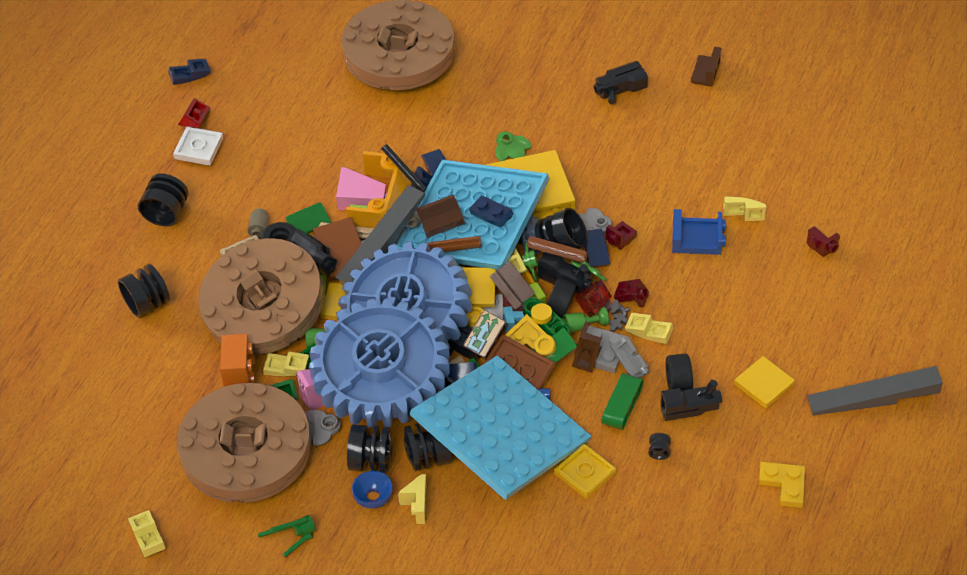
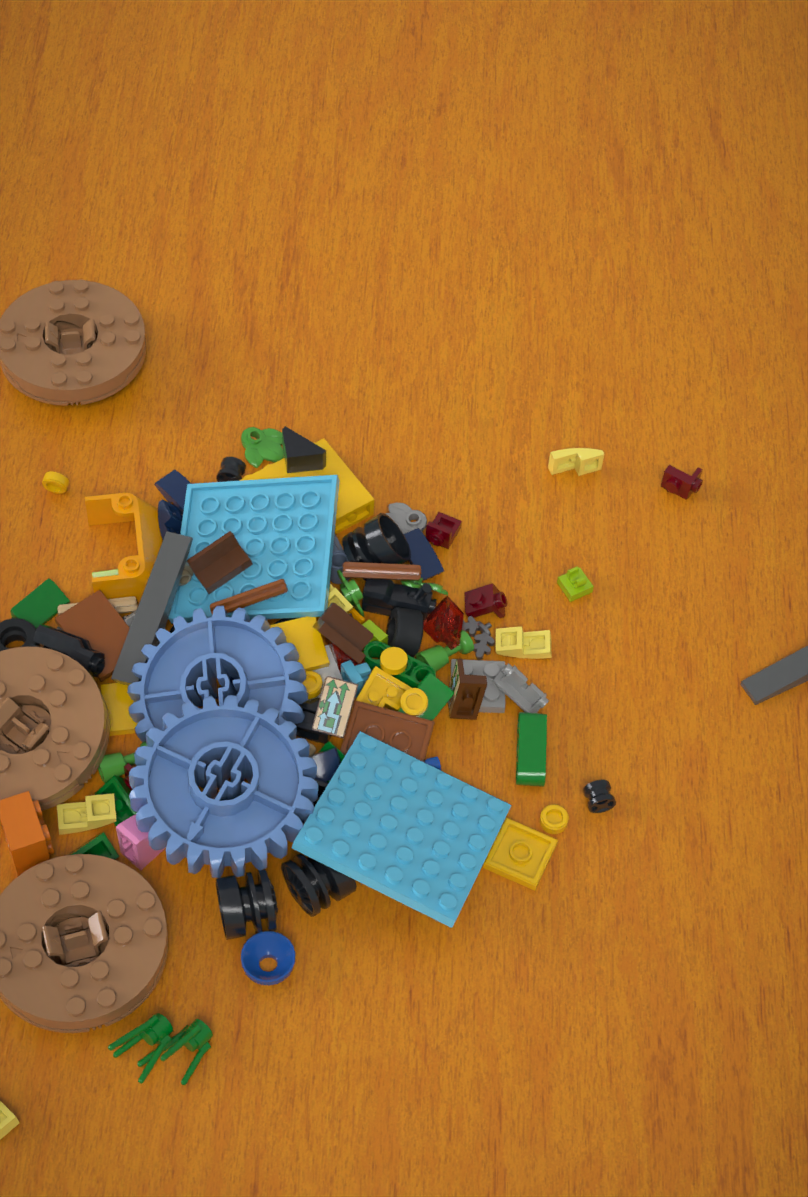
camera: 25 degrees left, 5 degrees up
(276, 515) = (153, 1031): none -> green plant
(318, 424) = (161, 880): light grey plate -> none
(351, 139) = (55, 482): none -> yellow tile
(357, 189) = (93, 550): bright pink slope -> none
(403, 168) = (146, 508): black bar -> none
(415, 495) = (328, 949): light yellow slope -> none
(480, 157) = (231, 469): none -> black wheel
(491, 211) = (283, 541): dark blue plate -> none
(531, 155) = (301, 453): none -> black slope
(620, 79) = (365, 328): black piece -> none
(620, 454) = (554, 819): none -> yellow tile
(679, 372) = (588, 695): black tyre -> none
(690, 402) = (613, 729): black piece -> none
(698, 234) = (534, 506): blue panel -> none
(707, 68) = (459, 291): reddish brown panel -> none
(707, 296) = (575, 584): none -> lime tile
(764, 382) = (685, 677): yellow tile -> none
(787, 477) = (760, 793): yellow plate -> none

